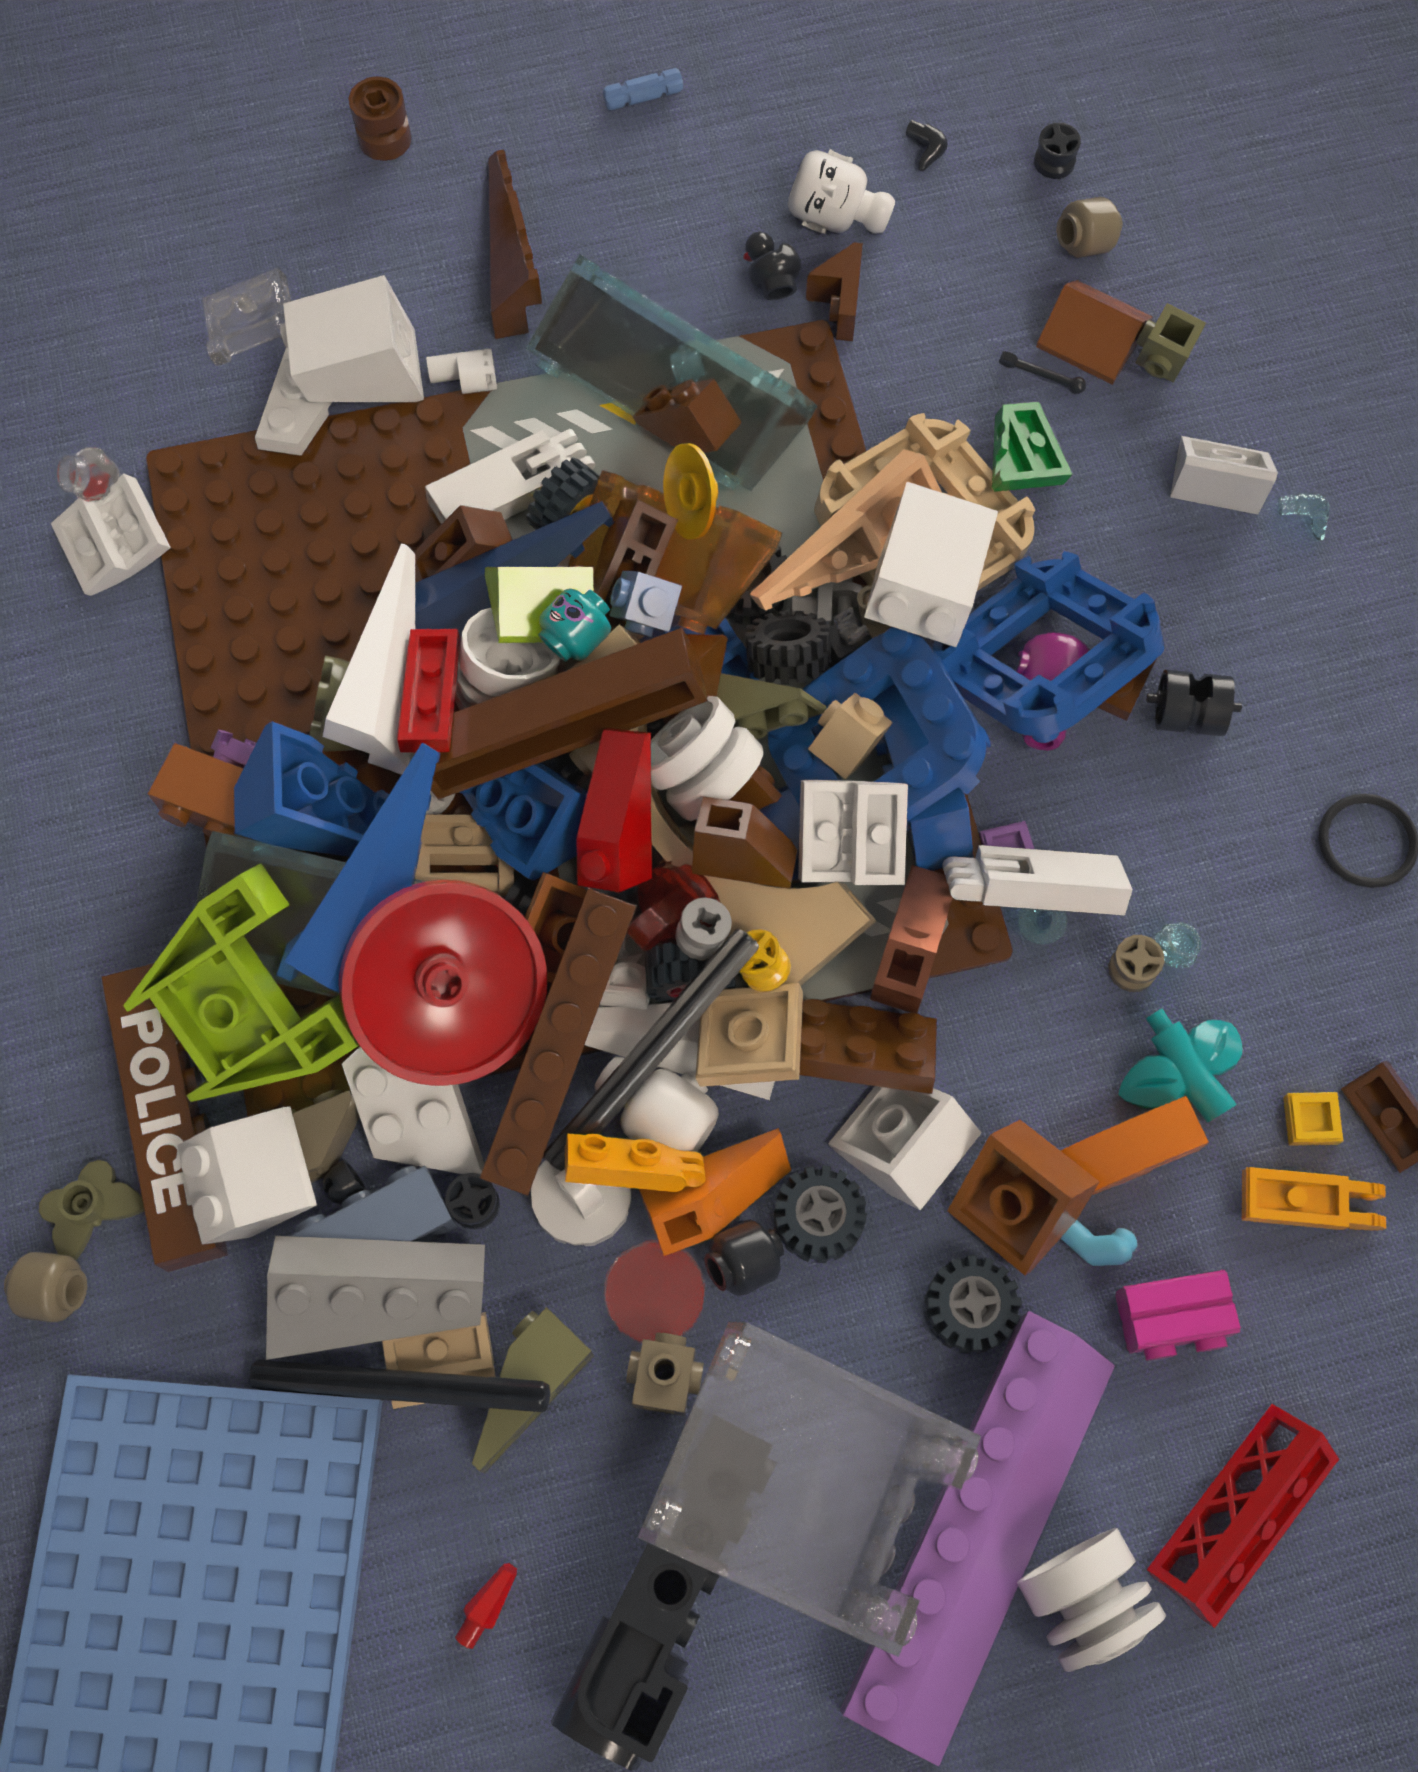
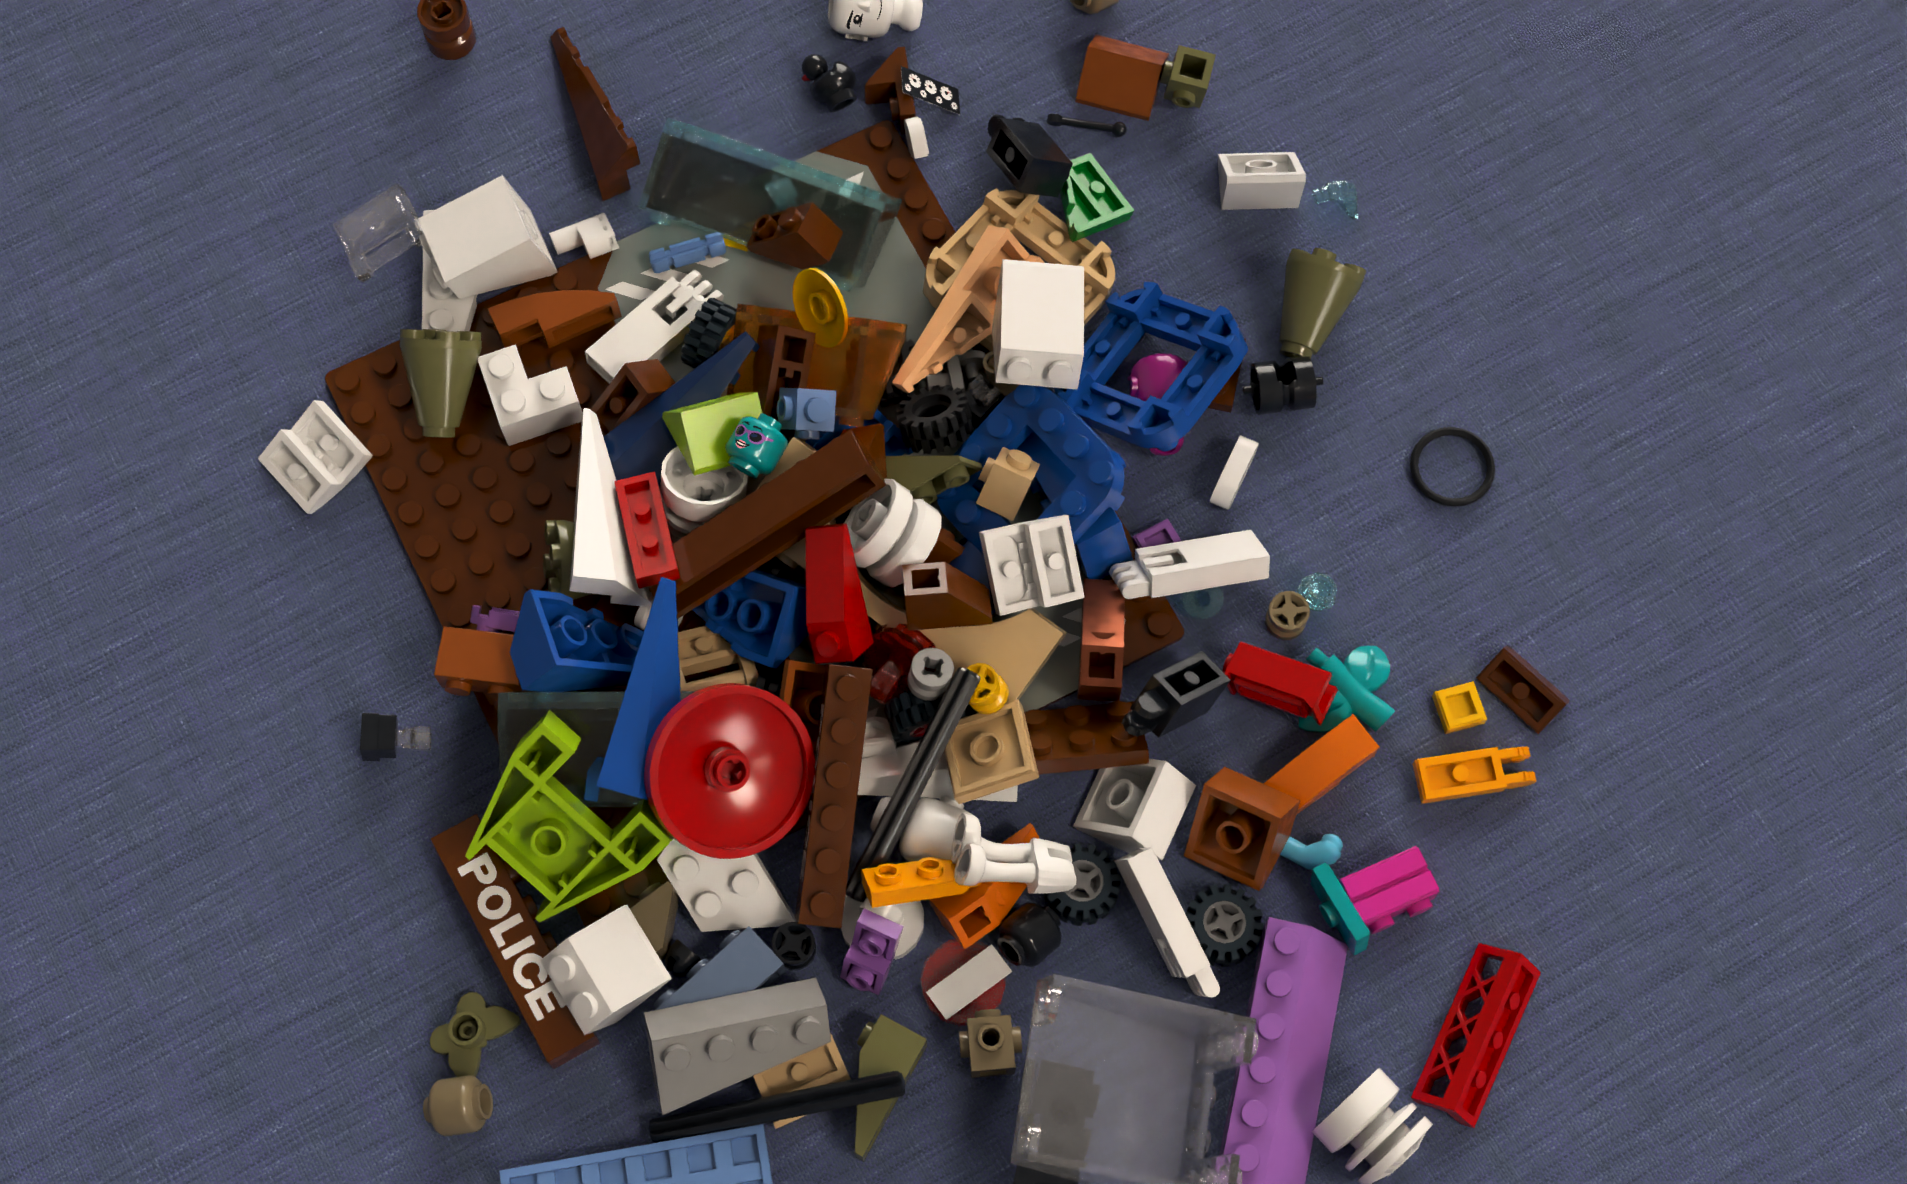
camera: 15 degrees left, 0 degrees up
(88, 474) = (284, 408): clear animal -> none
(88, 850) = (381, 737): none -> black piece
(259, 475) = (439, 375): none -> olive cone
(347, 529) = (526, 405): none -> white brick
(402, 441) = (553, 315): none -> dark orange slope
(555, 1232) = (871, 952): none -> medium lavender slope
(568, 410) = (687, 252): none -> medium blue axle
(660, 1294) = (969, 982): none -> white sticker
(773, 1179) = (1039, 864): none -> white piece
(849, 342) = (916, 137): none -> white tile
(878, 296) = (930, 90): none -> black sticker
(907, 1284) = (1167, 921): none -> white hinge
(968, 388) = (1027, 156): none -> black hinge
(983, 1024) = (1176, 696): none -> black hinge
(1108, 1037) = (1279, 681): none -> red window
(1113, 1321) = (1338, 909): none -> teal plate
(1114, 787) = (1234, 472): none -> white beam
(1255, 614) = (1315, 299): none -> olive cone

